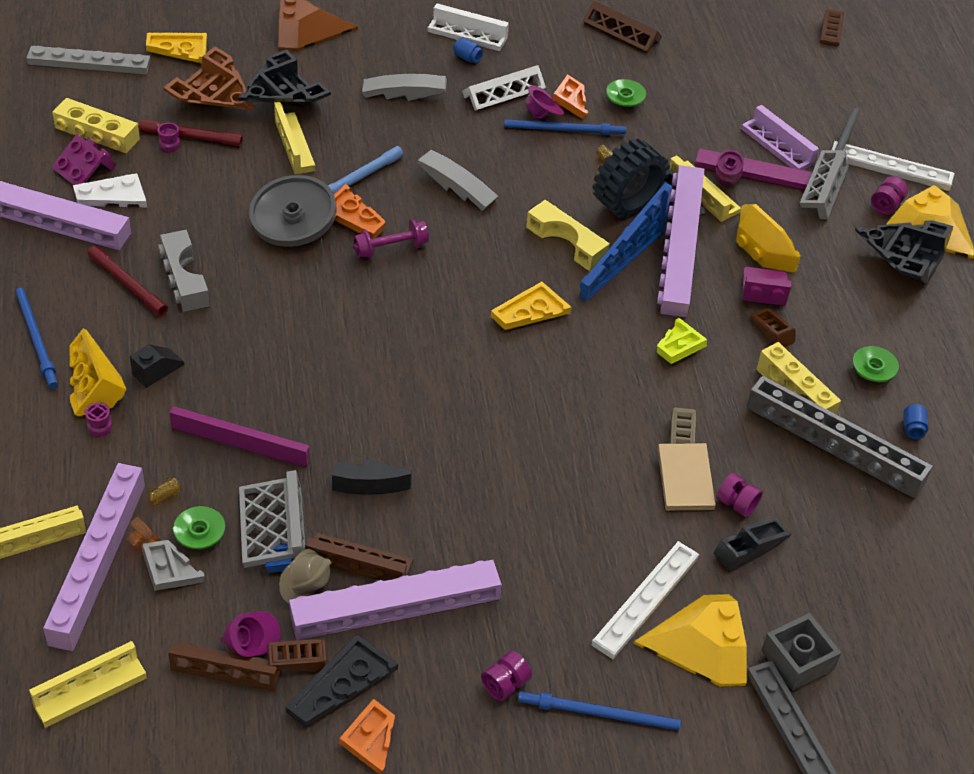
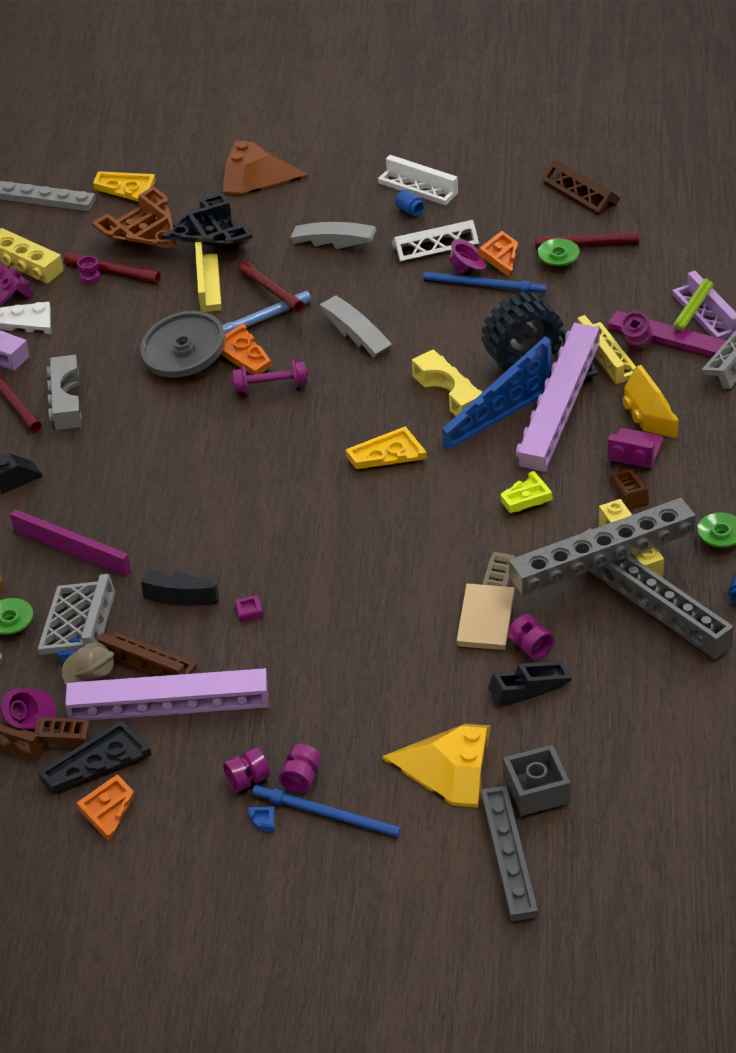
camera: 20 degrees right, 5 degrees down
(385, 156) = (289, 299): none -> dark red piece
(446, 491) = (248, 608): none -> magenta tile
(536, 727) = (263, 818): none -> blue tile
(561, 667) = (300, 768): none -> magenta wheel
(645, 600) = (406, 721): white tile -> none
(677, 75) = (628, 237): none -> dark red piece
(772, 139) = (693, 304): none -> lime axle
(785, 396) = (601, 546): none -> flat silver brick

